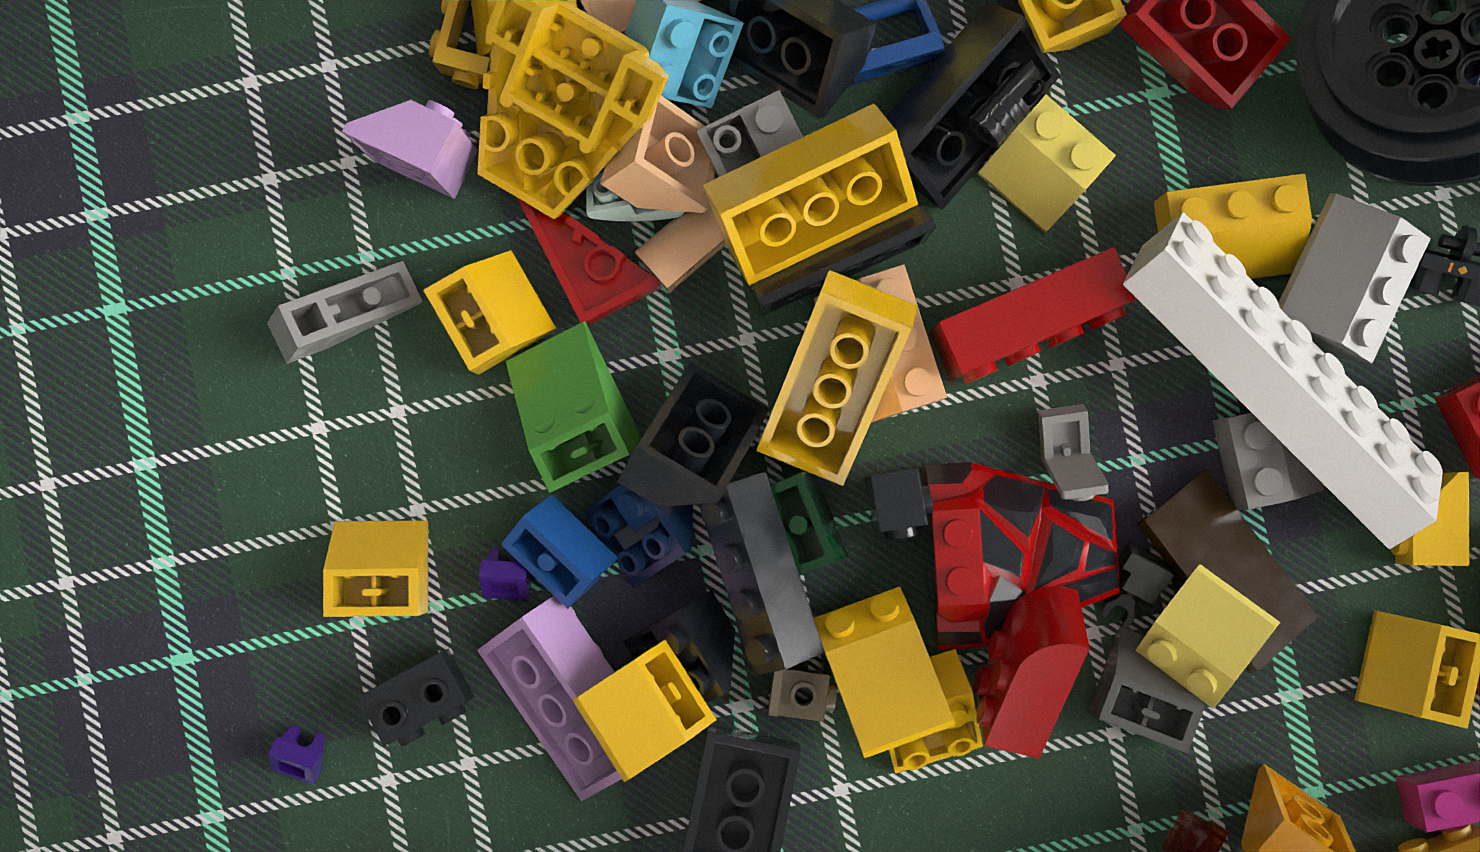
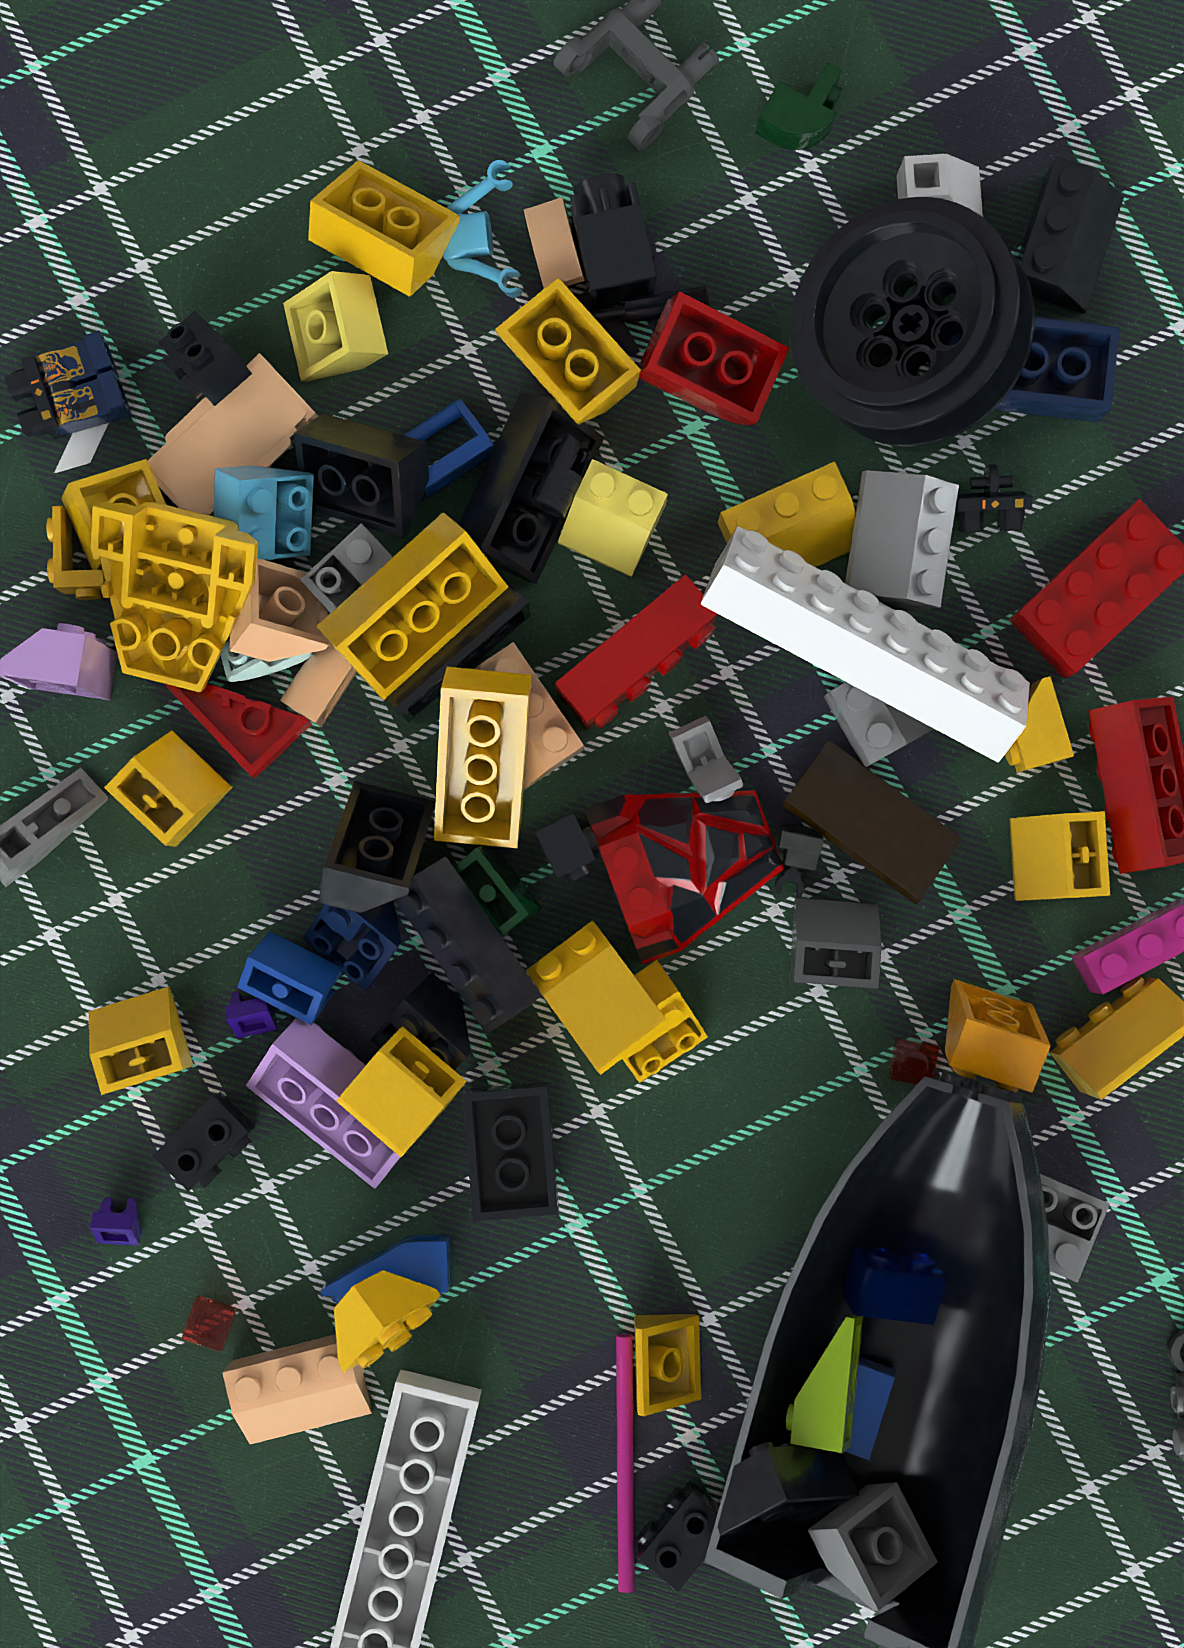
camera: 20 degrees left, 0 degrees up
(570, 408) = (262, 851): bright green slope -> none
(788, 681) = (519, 1038): dark tan brick -> none
(1031, 670) = (721, 958): red brick -> none
(1207, 636) = (866, 883): light yellow slope -> none

